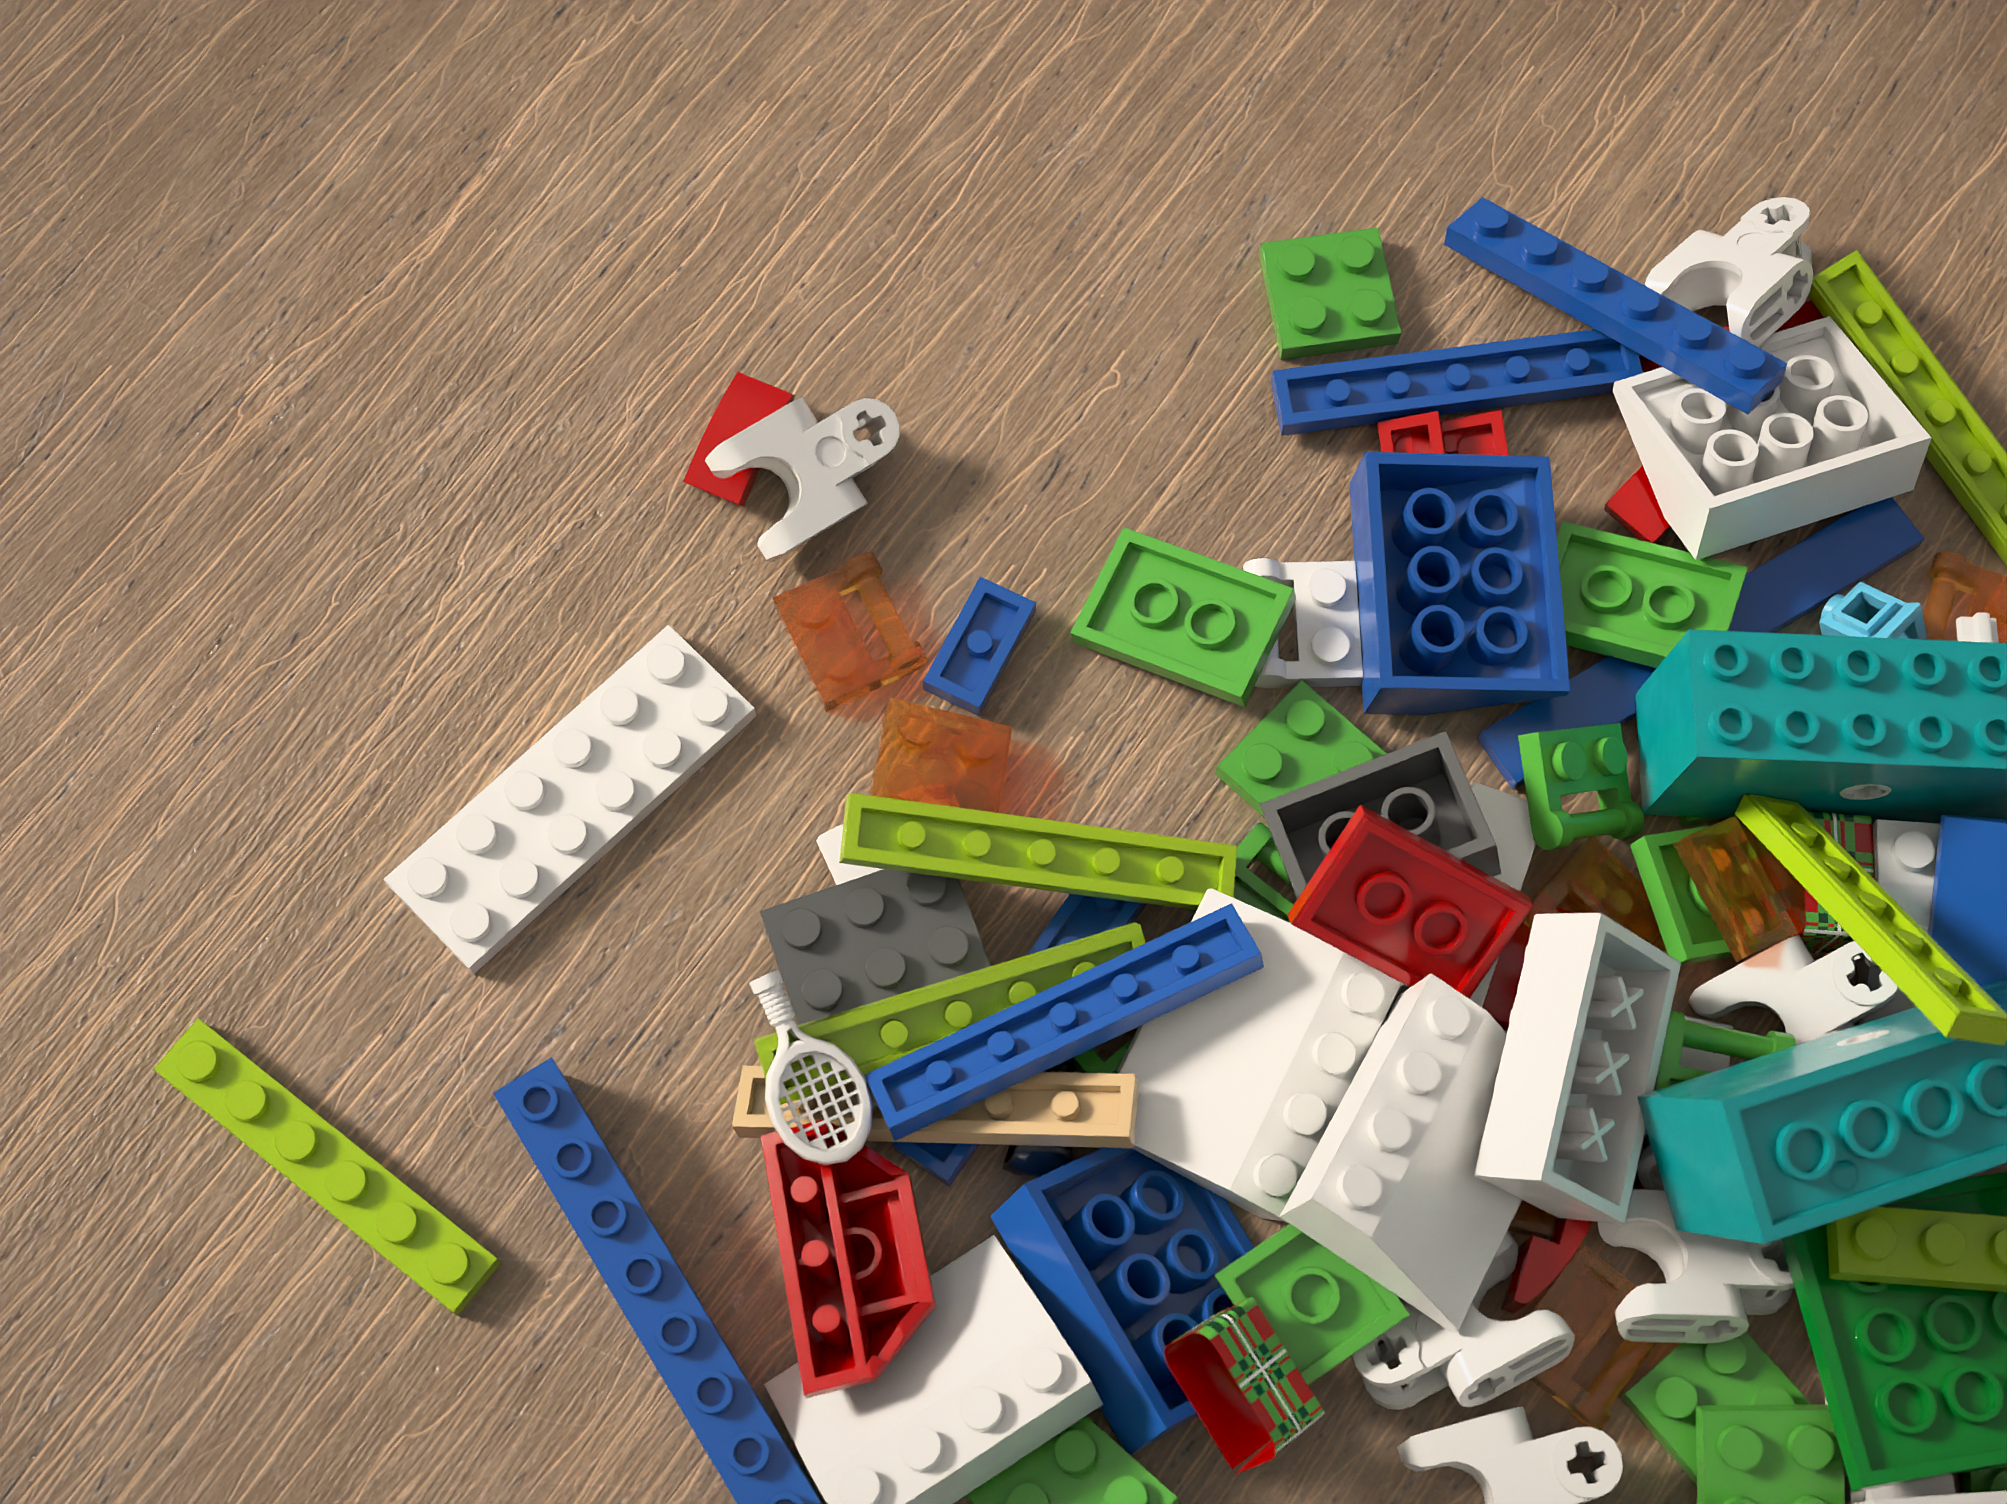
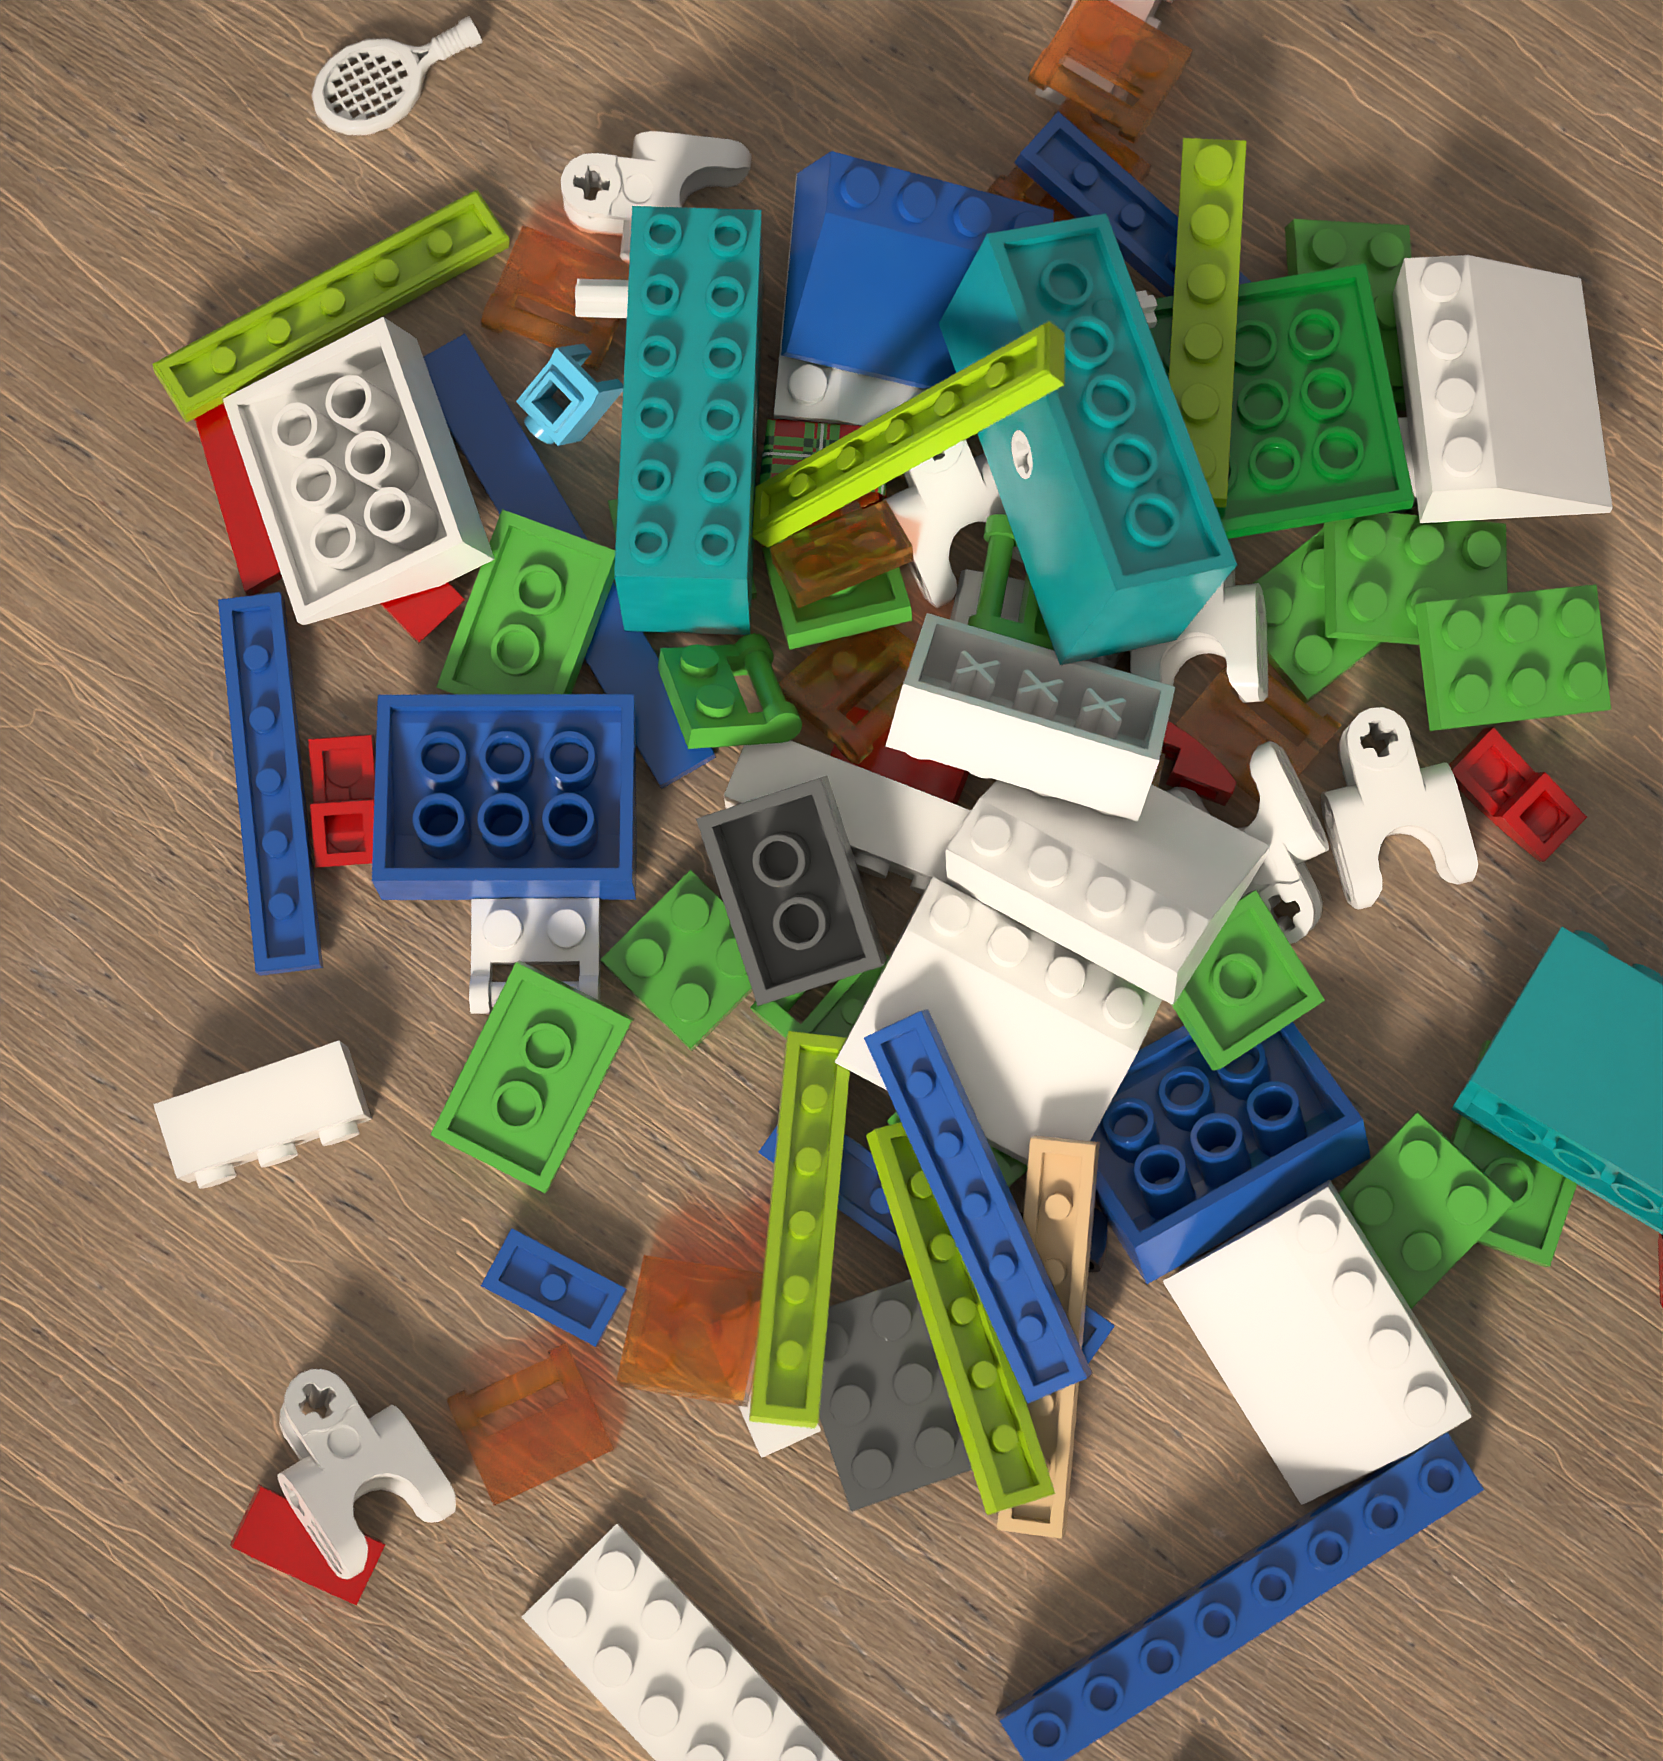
camera: 90 degrees left, 10 degrees up
(781, 1016) = (972, 1486): white piece -> none
(847, 1260) = (1195, 1422): red wedge -> none
(1138, 385) = (263, 1115): none -> white brick
(1243, 1384) = (1320, 1047): piece -> none
(1329, 293) = (158, 908): bright green plate -> none
(1408, 906) = (876, 866): red tile -> none
(1616, 305) = (200, 616): blue plate -> none
(1753, 269) = (163, 476): white piece -> none

